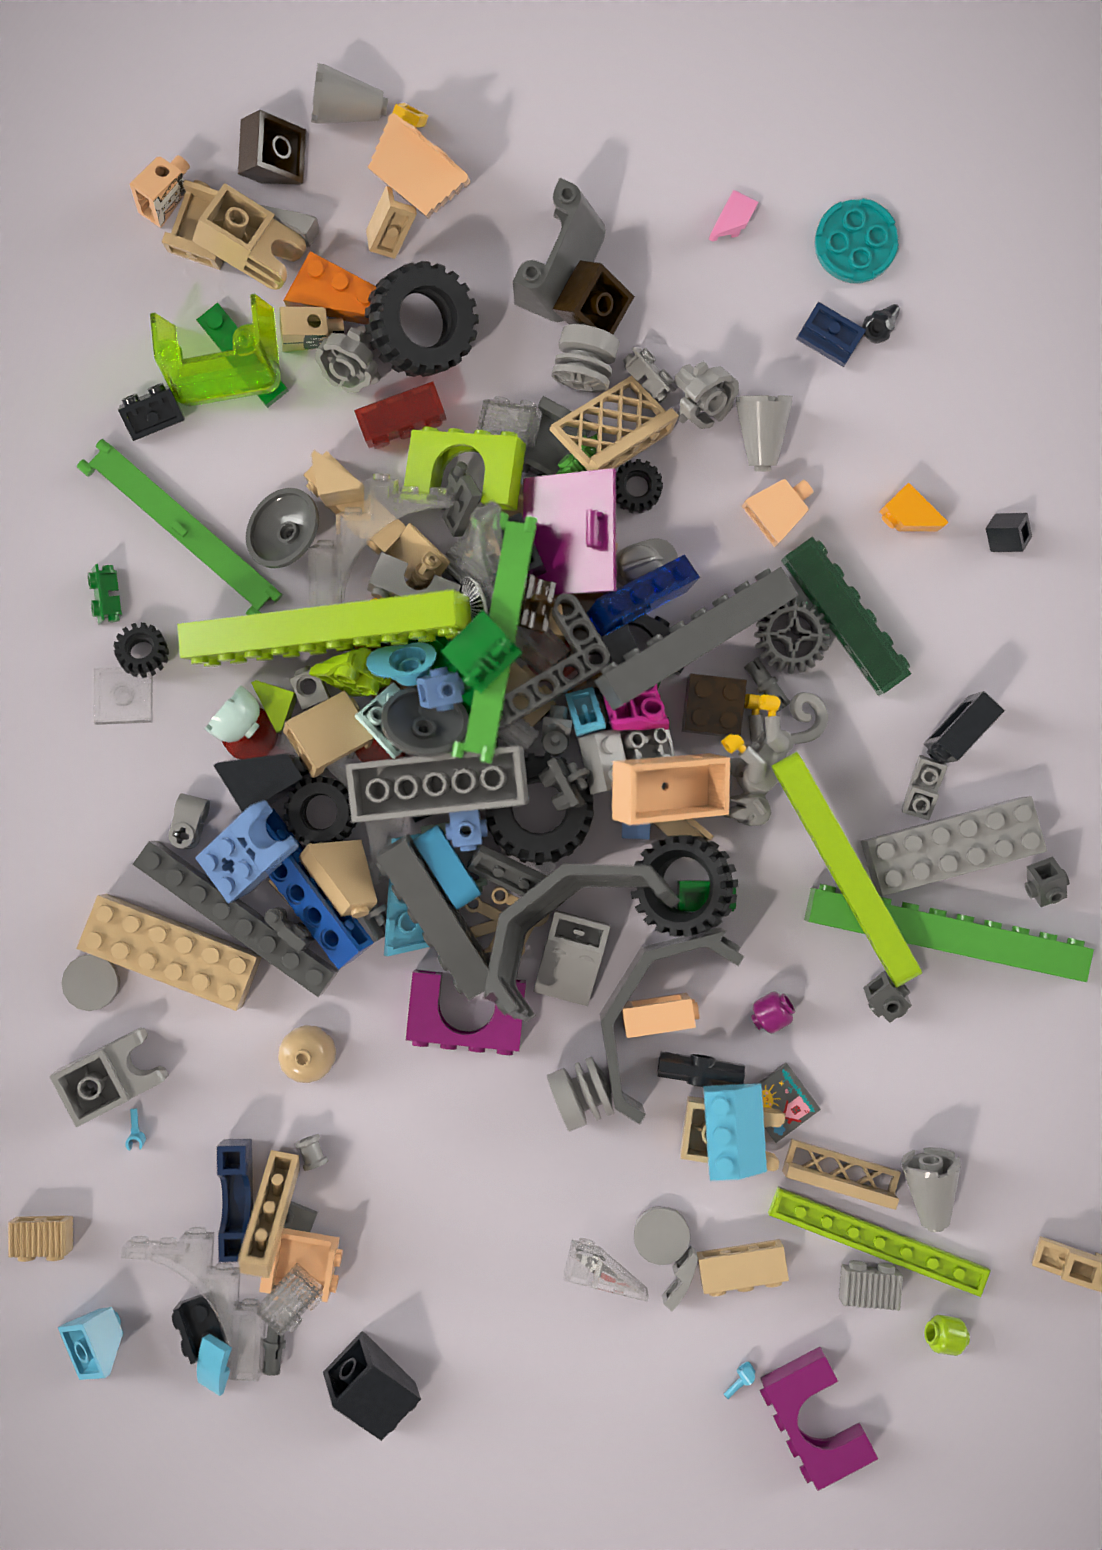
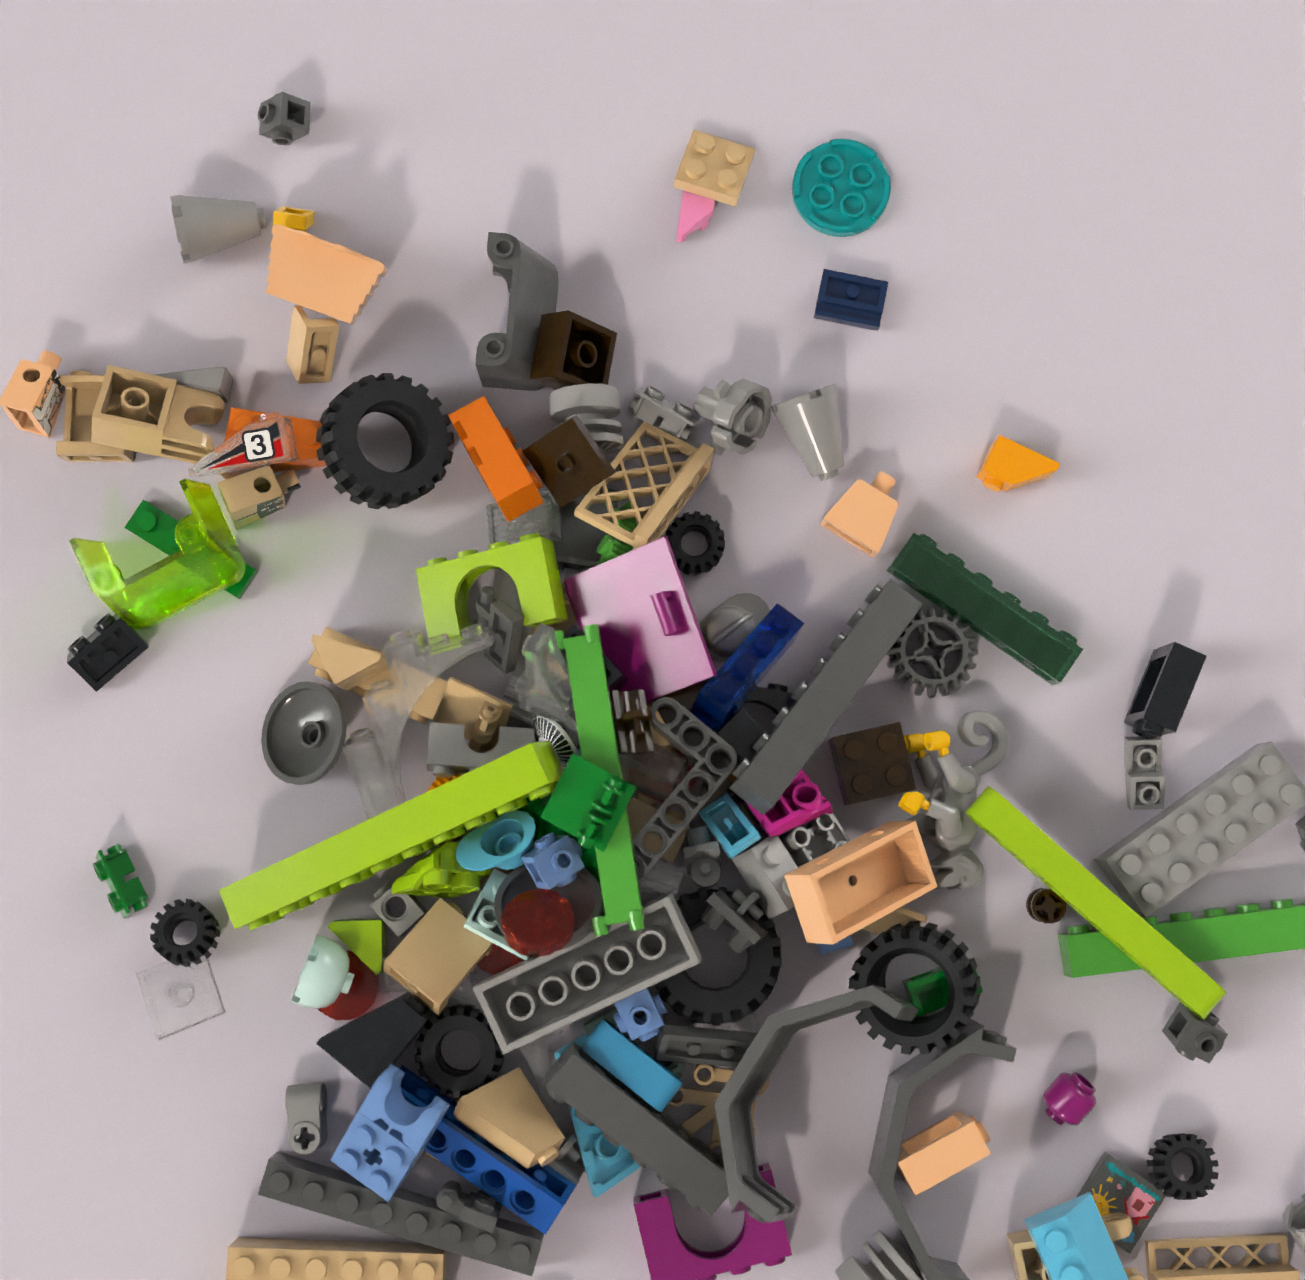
camera: 20 degrees left, 5 degrees down
(181, 525) = (186, 770): bright green piece -> none
(271, 149) = (148, 308): dark brown slope -> none
(317, 287) = (253, 446): none -> slope
(347, 357) = (316, 514): light grey piece -> none
(400, 415) = (397, 556): clear red brick -> none
(411, 730) = (538, 922): none -> clear red tile
(429, 30) = (284, 118): none -> dark grey brick
(504, 363) = (496, 459): none -> orange wedge
(560, 384) = (568, 461): none -> dark brown plate
(571, 957) = (813, 1117): light grey slope -> none
(699, 1070) = (1011, 1198): black piece -> none
(760, 189) = (714, 168): none -> tan plate
(765, 682) = (921, 715): dark grey pin -> none
(813, 862) = (1052, 905): none -> dark brown wheel
(856, 1092) = (1202, 1166): none -> black tyre
(881, 324) = (902, 269): black animal -> none
(1009, 532) = (1130, 451): black panel -> none

